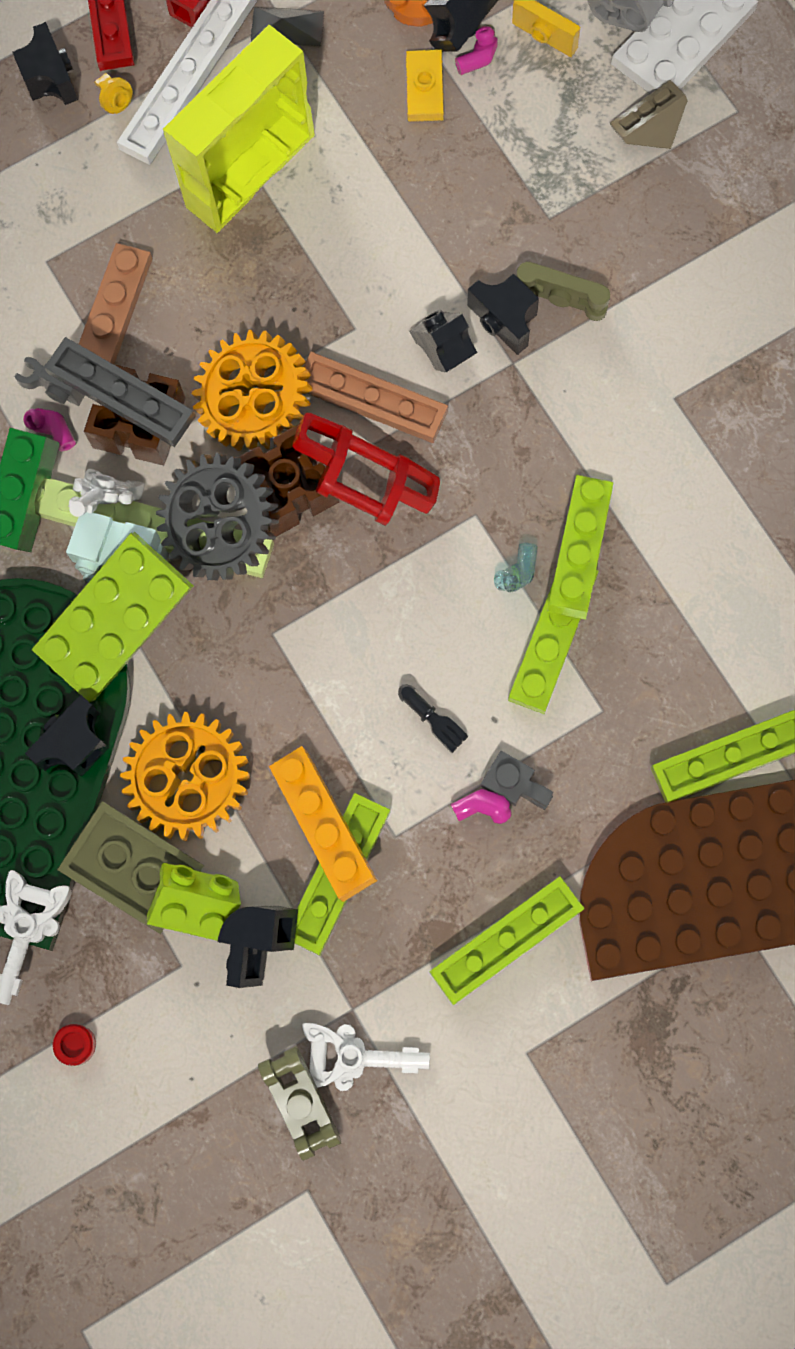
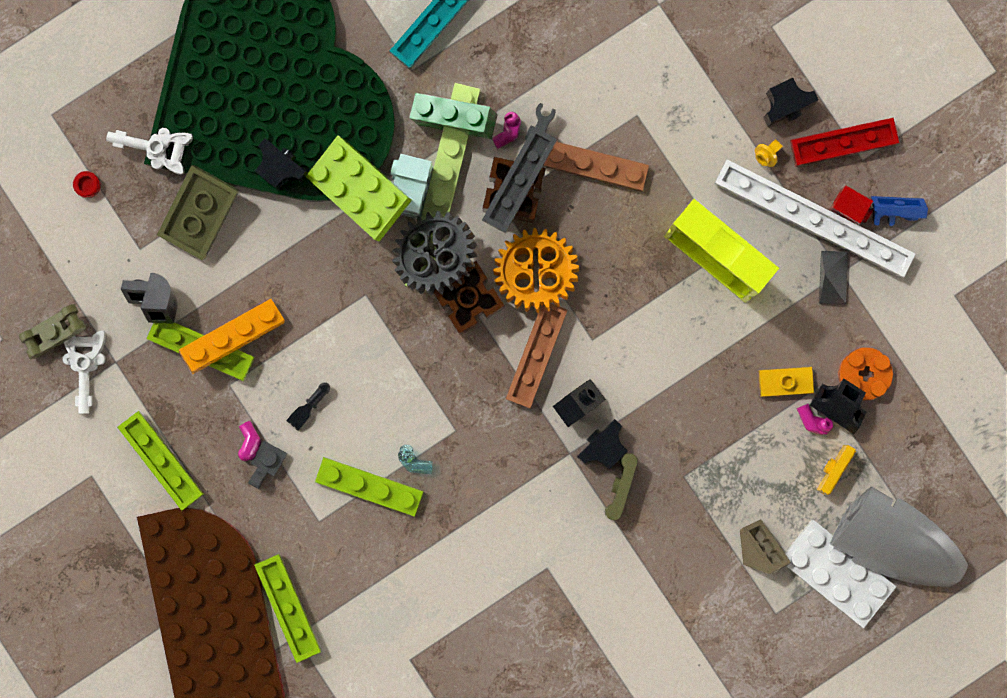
camera: 80 degrees right, 10 degrees up
(102, 490) = (455, 172): white piece -> none
(154, 759) = (250, 264): light orange gear -> none
(193, 901) = (177, 255): lime bracket -> none
(334, 458) = (476, 332): red bar -> none
(580, 547) = (429, 503): lime plate -> none

